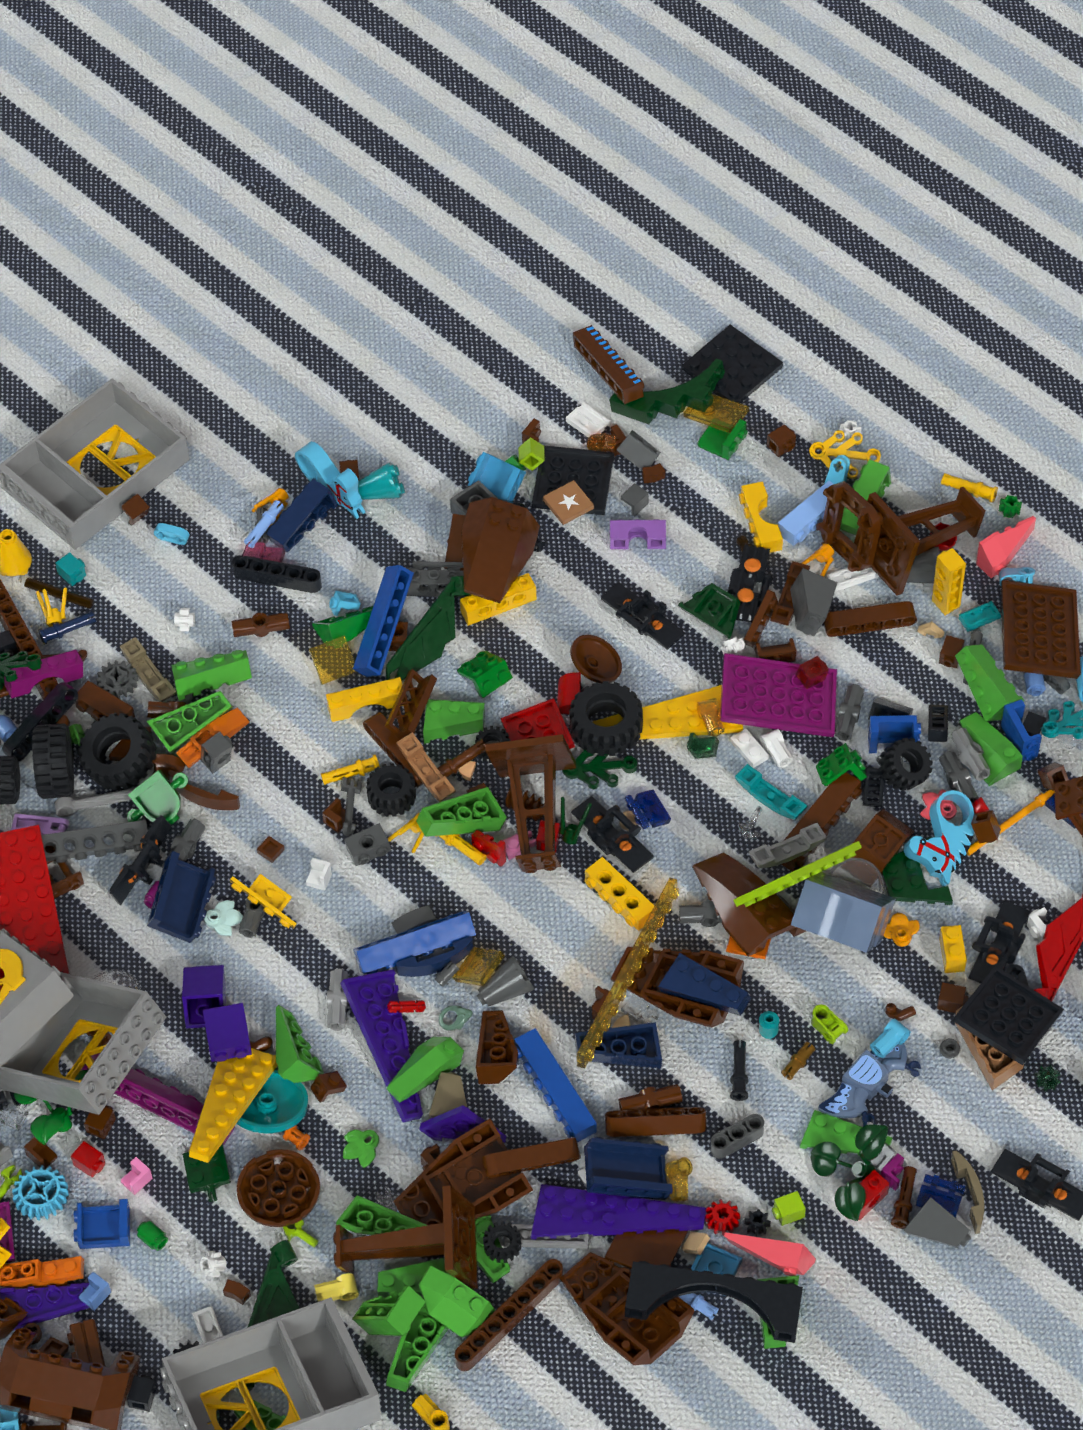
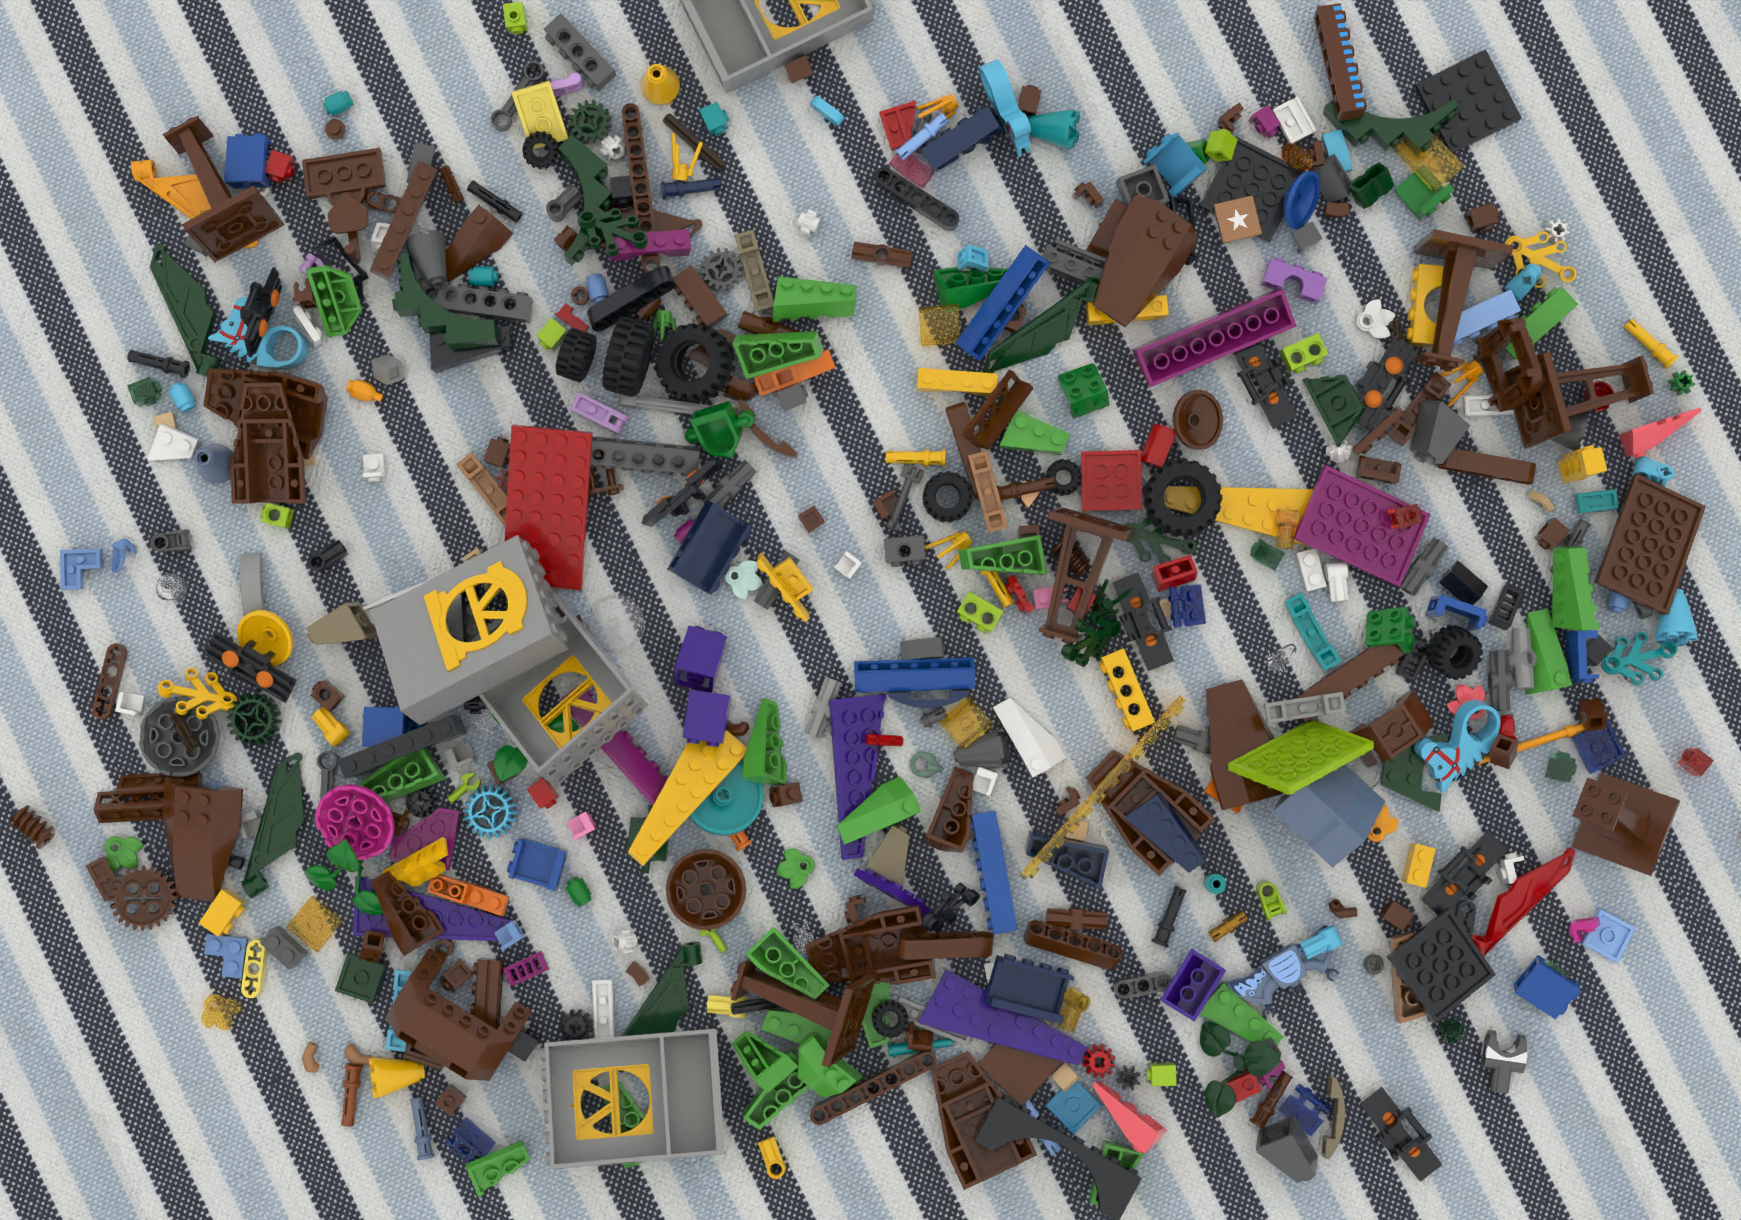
camera: 20 degrees right, 30 degrees up
(113, 1340) = (508, 973): none -> magenta slope
(238, 524) = (898, 123): none -> red wing
(364, 1274) = (751, 1006): none -> black axle
(431, 523) = (1092, 195): none -> reddish brown bracket
(458, 869) = (981, 608): none -> lime brick
(509, 1127) = (949, 903): none -> black plant
(515, 1011) = (984, 781): none -> white panel
(528, 1270) = (901, 1048): none -> teal pin
(540, 1253) = (918, 1039): none -> reddish brown bracket
(547, 967) = (1033, 743): none -> white wedge
(563, 428) = (1265, 122): none -> magenta brick
(583, 593) = (1214, 337): none -> magenta slope
(583, 850) = (1109, 629): none -> dark green plant
(617, 467) = (1301, 199): none -> blue dish
(624, 782) = (1174, 573): none -> red brick
(630, 423) = (1335, 144): none -> medium azure slope
(670, 584) = (1301, 349): none -> lime brick
(675, 444) = (1371, 185): none -> dark green brick
(725, 542) = (1377, 318): none -> white plate
(775, 460) = (1460, 257): none -> reddish brown piece
(783, 1115) = (1193, 985): none -> dark purple slope
(1046, 829) = (1561, 767): none -> clear green brick

